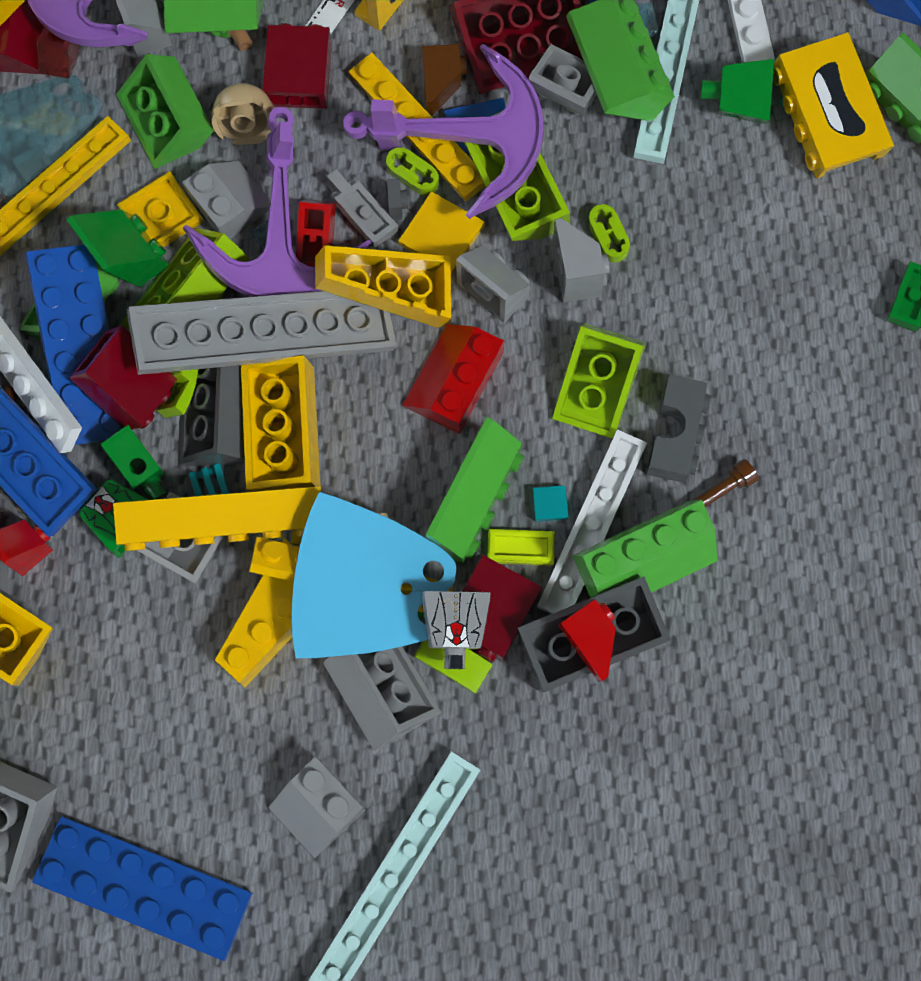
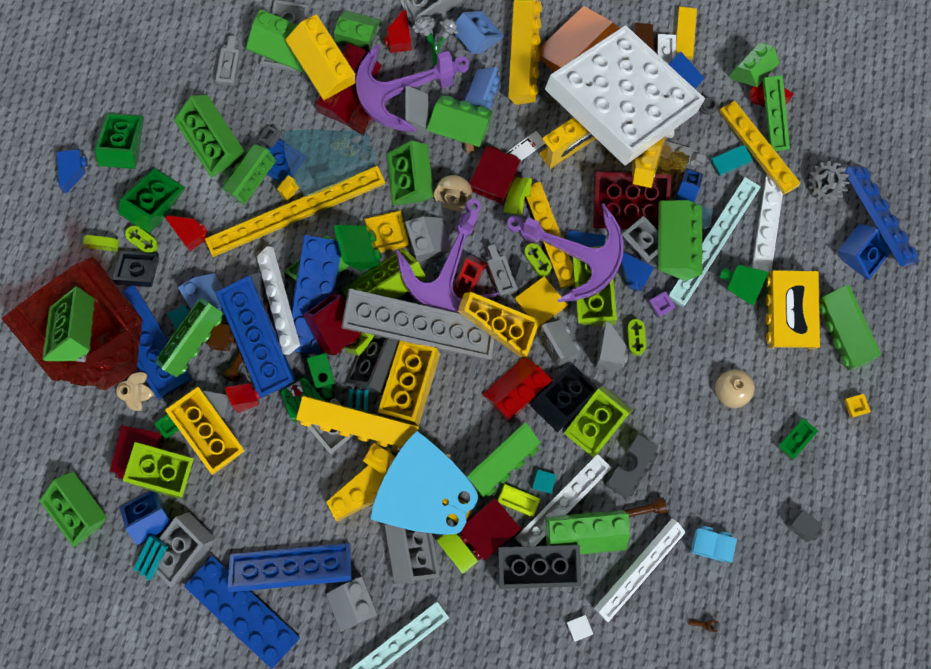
camera: 15 degrees right, 0 degrees up
(193, 787) = (289, 567): none -> blue plate
(343, 79) = (518, 191): none -> lime slope
(442, 74) = (575, 209): reddish brown slope -> none
(455, 623) = (465, 532): light grey torso -> none
(532, 363) = (564, 397): none -> black slope
(569, 135) = (635, 272): none -> blue slope
(592, 636) = (537, 568): red slope -> none
(629, 170) = (661, 304): none -> medium lavender plate
(691, 709) = (579, 628): none -> white tile
(750, 584) = (639, 570): none -> white plate
(788, 255) = (734, 388): none -> tan cylinder
(849, 503) = (713, 545): none -> medium azure brick
(885, 629) = (706, 625): none -> reddish brown hand

